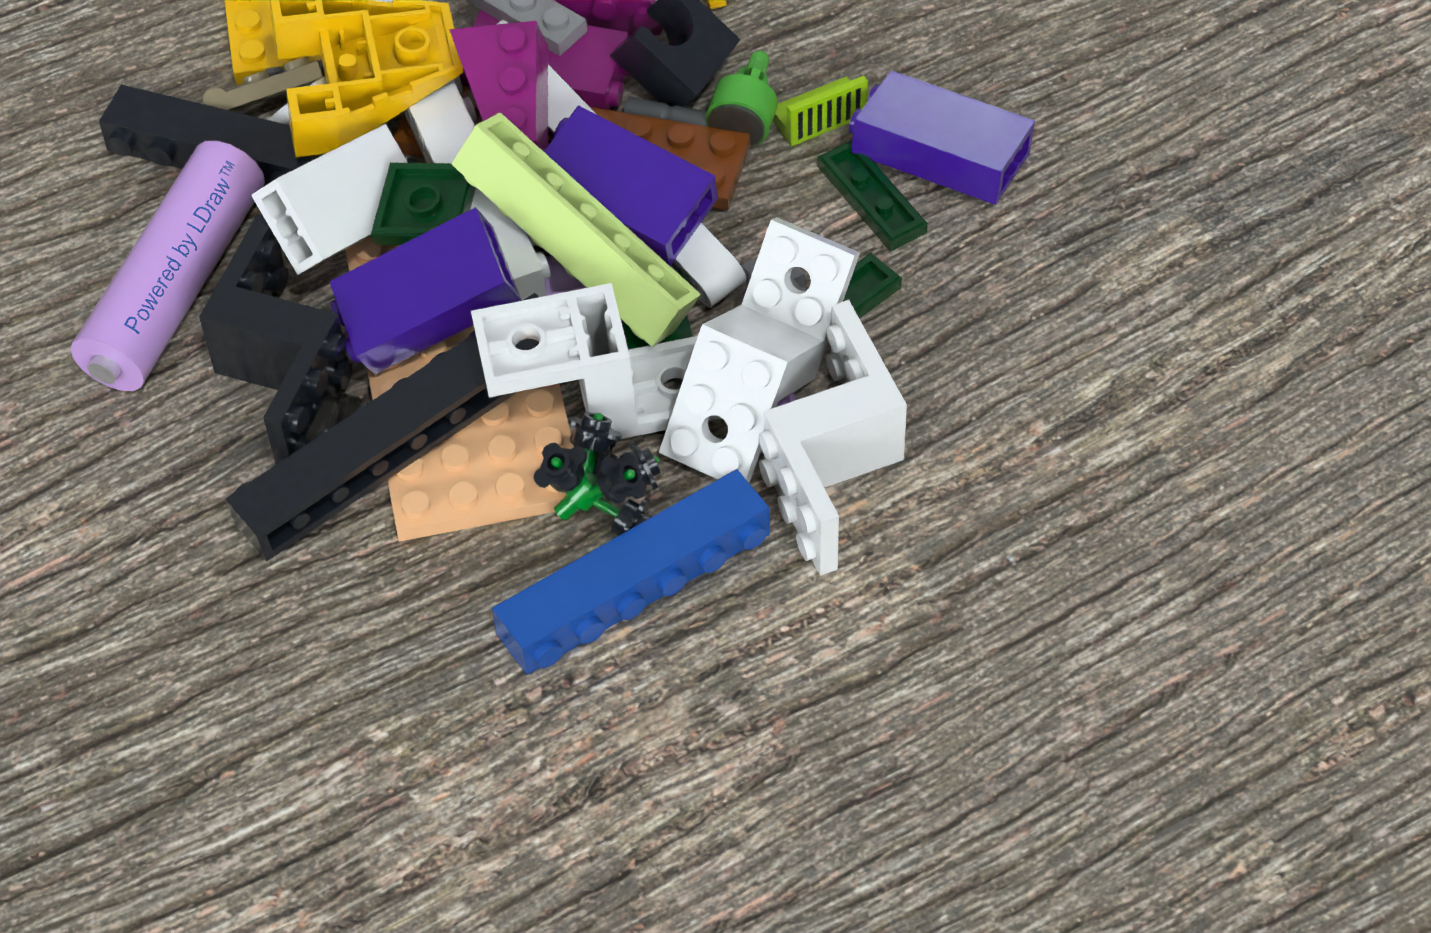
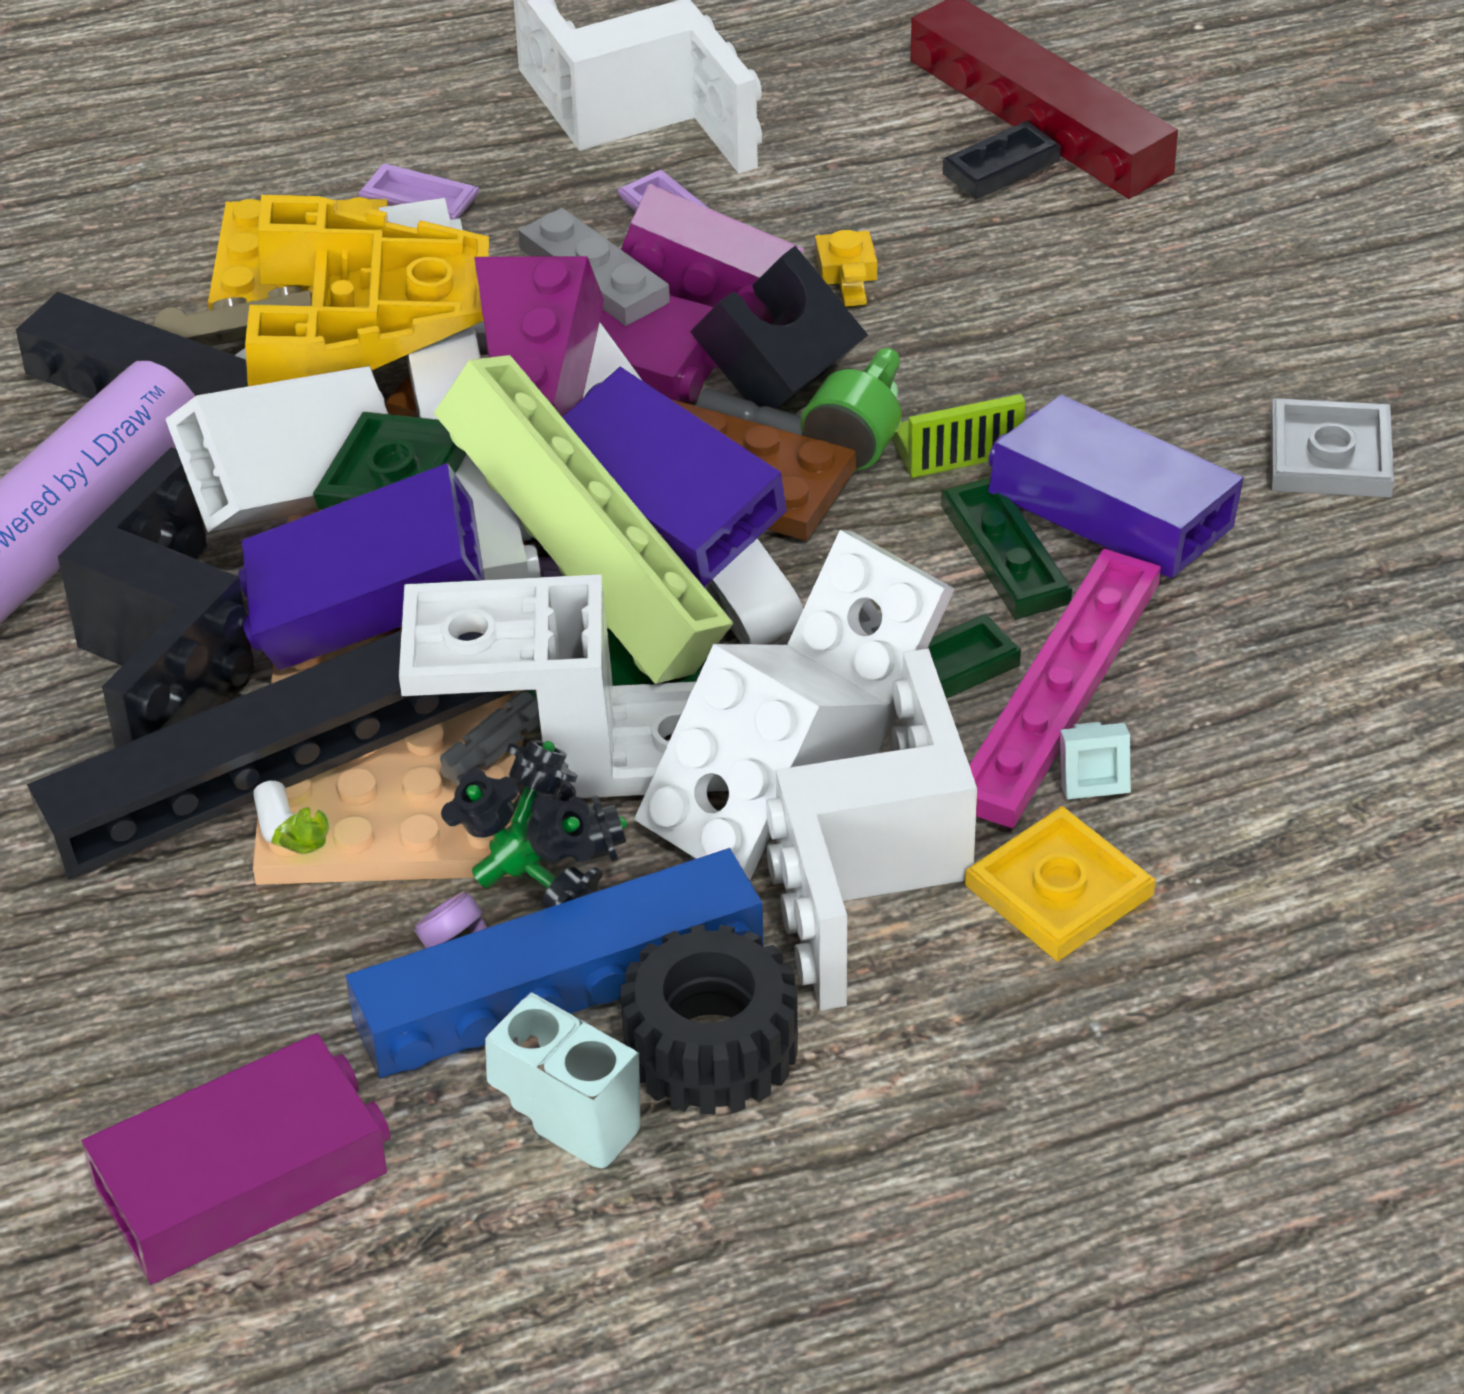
camera: 10 degrees right, 10 degrees down
(420, 502) = (285, 829): none -> arm
(447, 751) = (236, 1156): none -> magenta brick
(543, 412) = (491, 737): none -> dark grey axle
(549, 551) = (449, 920): none -> lavender tile
(667, 641) = (578, 1057): none -> light aqua piece
(751, 631) = (711, 976): none -> black tyre
(936, 298) = (1060, 684): none -> dark pink plate
(965, 454) = (1059, 883): none -> yellow tile
(972, 358) = (1095, 760): none -> light aqua tile
(1087, 81) = (1331, 448): none -> light grey tile

